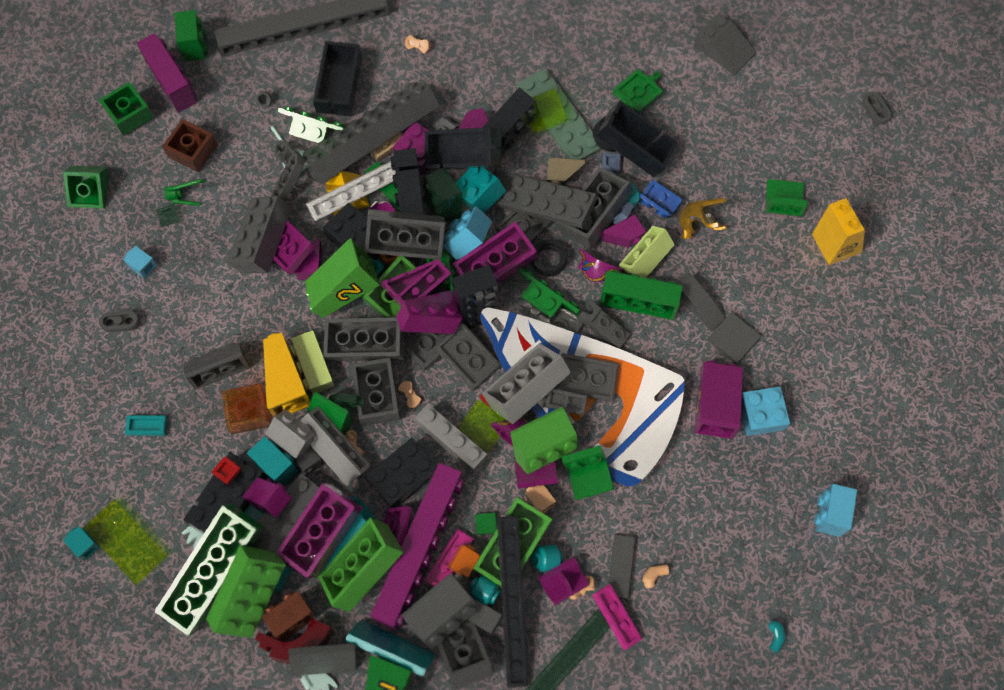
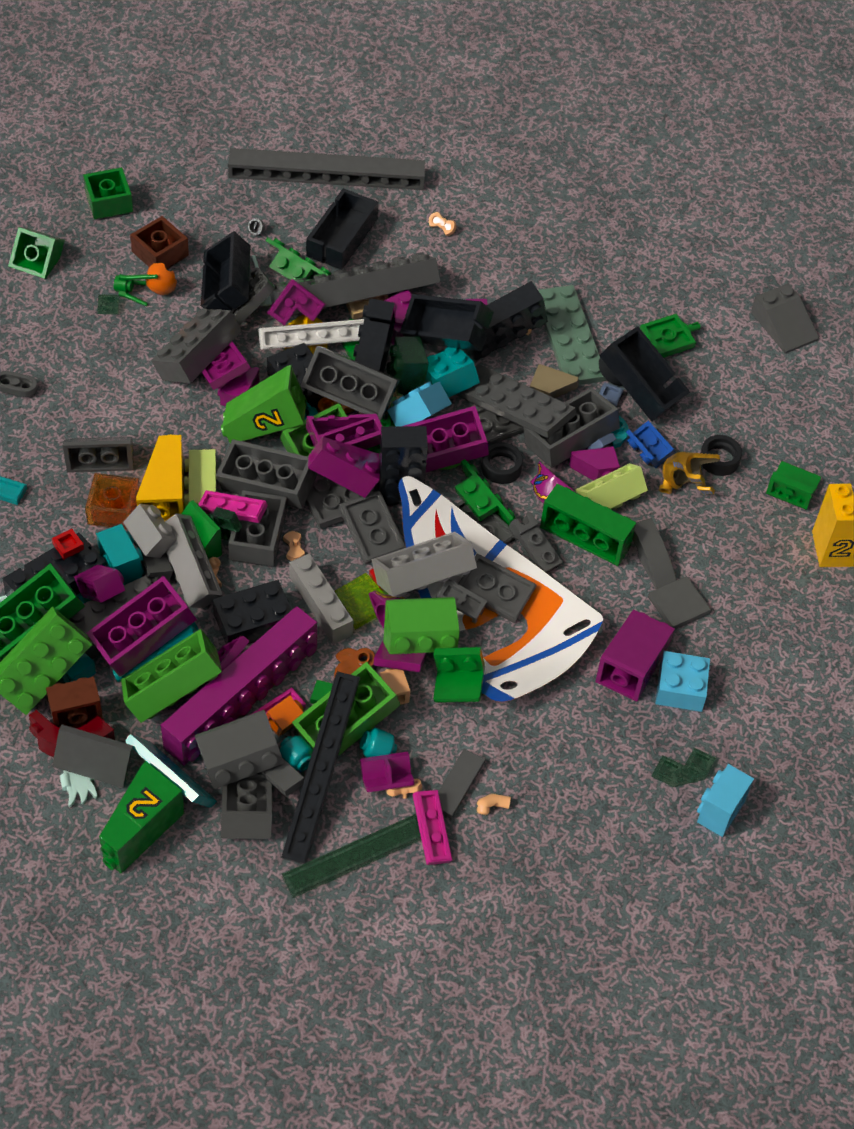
camera: 15 degrees right, 15 degrees down
(139, 262) = (61, 336): medium azure brick -> none
(167, 72) = (165, 172): magenta brick -> none
(190, 35) = (203, 146): green brick -> none
(209, 179) = (164, 283): none -> orange hair
(258, 158) = (226, 274): none -> black piece
(326, 166) = (293, 298): none -> magenta tile
(349, 383) = (244, 507): none -> dark pink tile
(498, 491) = (350, 659): none -> dark orange plate
(550, 111) = (560, 323): clear neon green tile -> none
(721, 178) = (728, 444): none -> black tyre
(779, 635) = (610, 910): teal arm -> none
(786, 494) = (676, 774): none -> clear green tile

